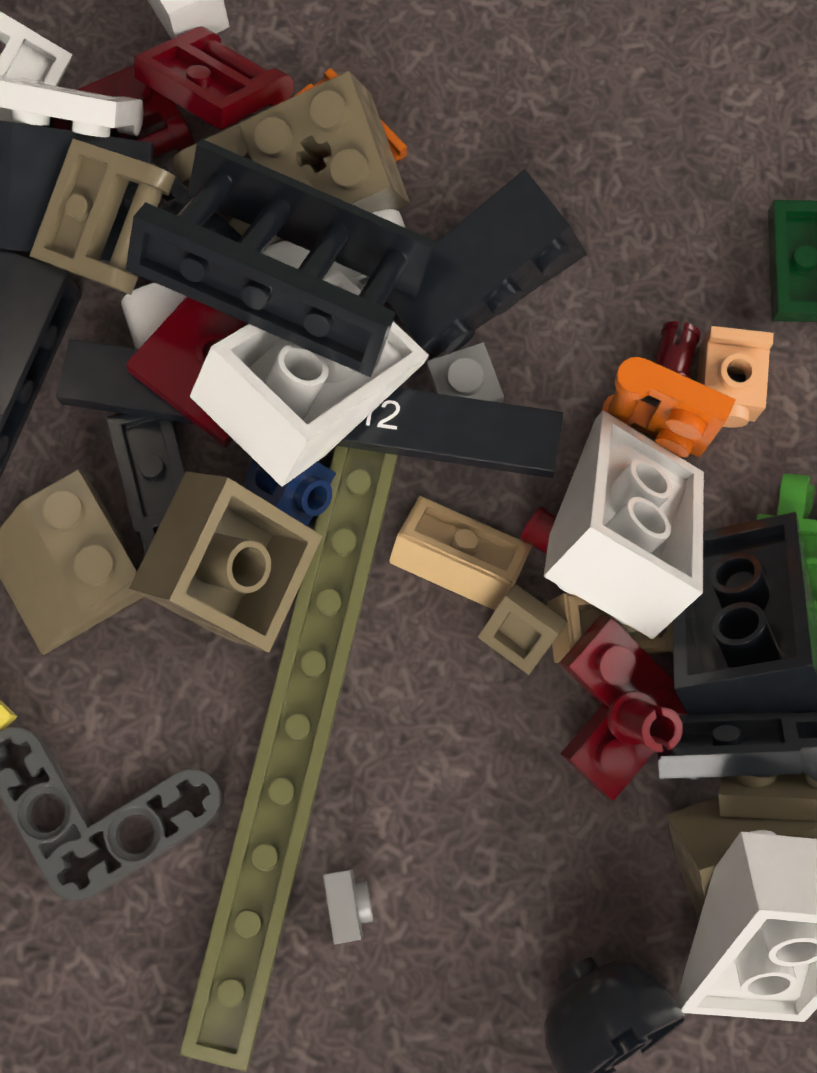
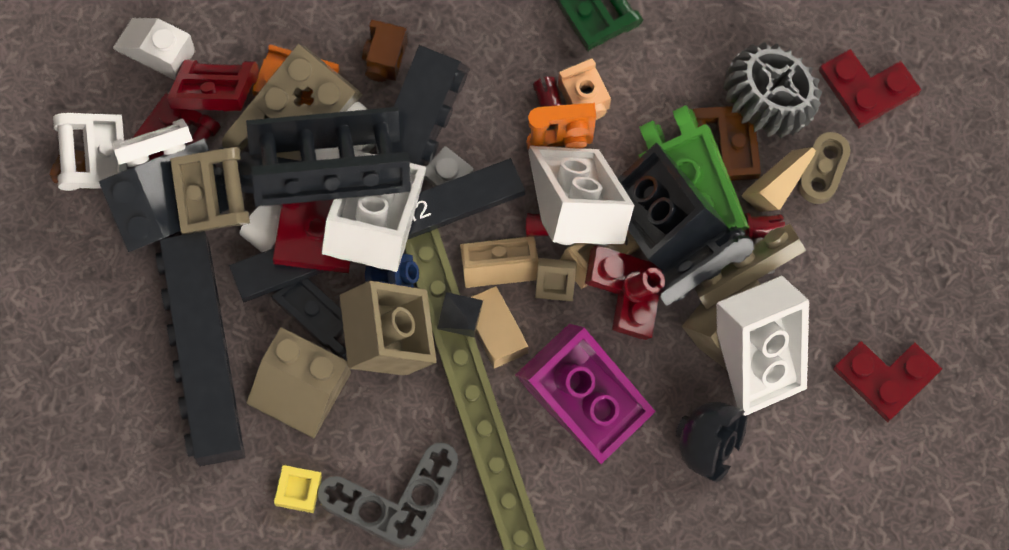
camera: 35 degrees left, 5 degrees down
(347, 905) = (551, 462): light grey plate -> none
(349, 600) = (460, 314): none -> black slope
(394, 646) = (499, 330): none -> tan slope
(462, 827) = (585, 392): none -> magenta slope
(481, 160) = (384, 50): none -> reddish brown brick

